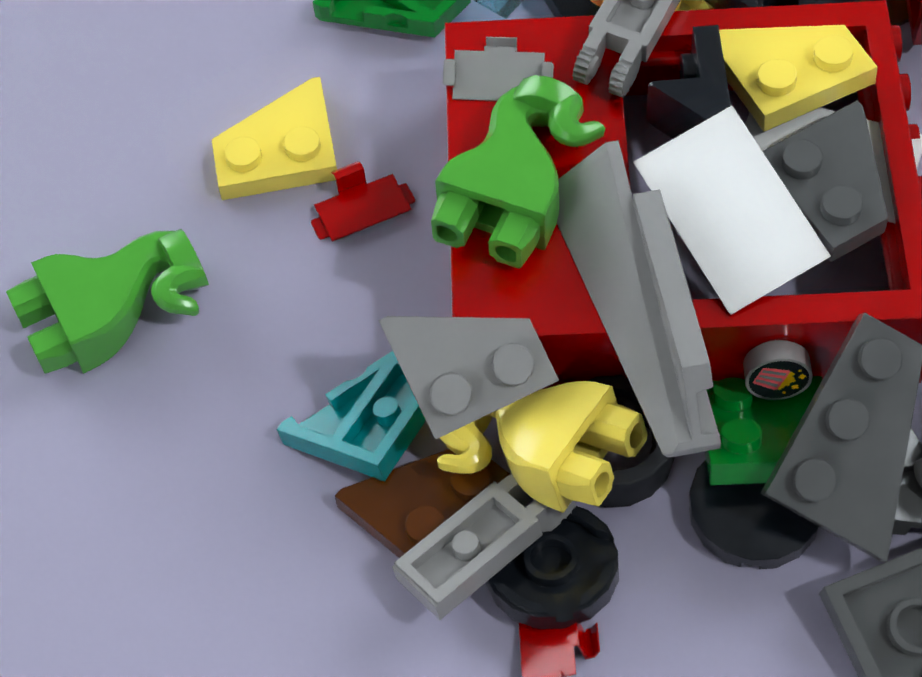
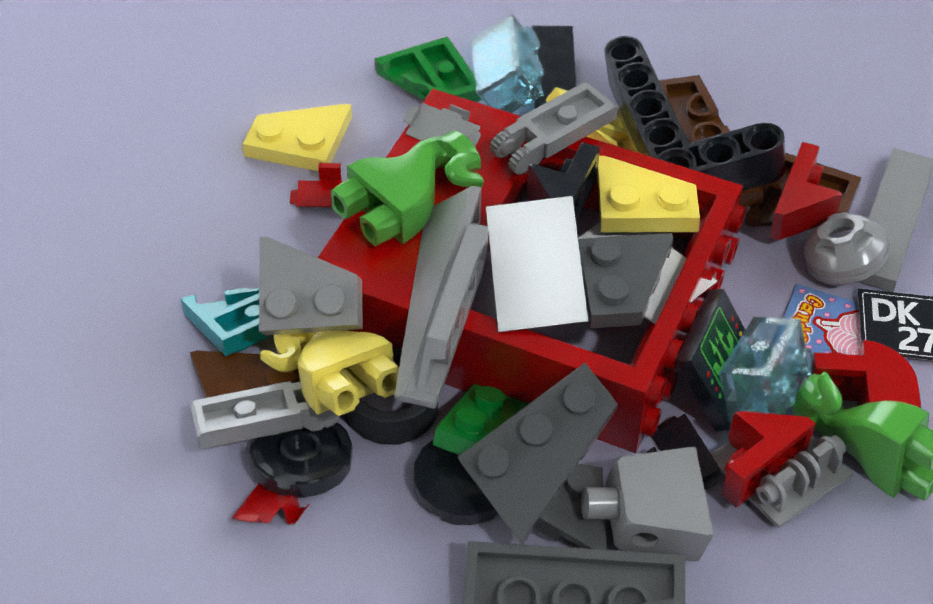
camera: 20 degrees right, 10 degrees down
(104, 296) = (123, 178): bright green hips -> none
(777, 370) = (519, 387): tile -> none

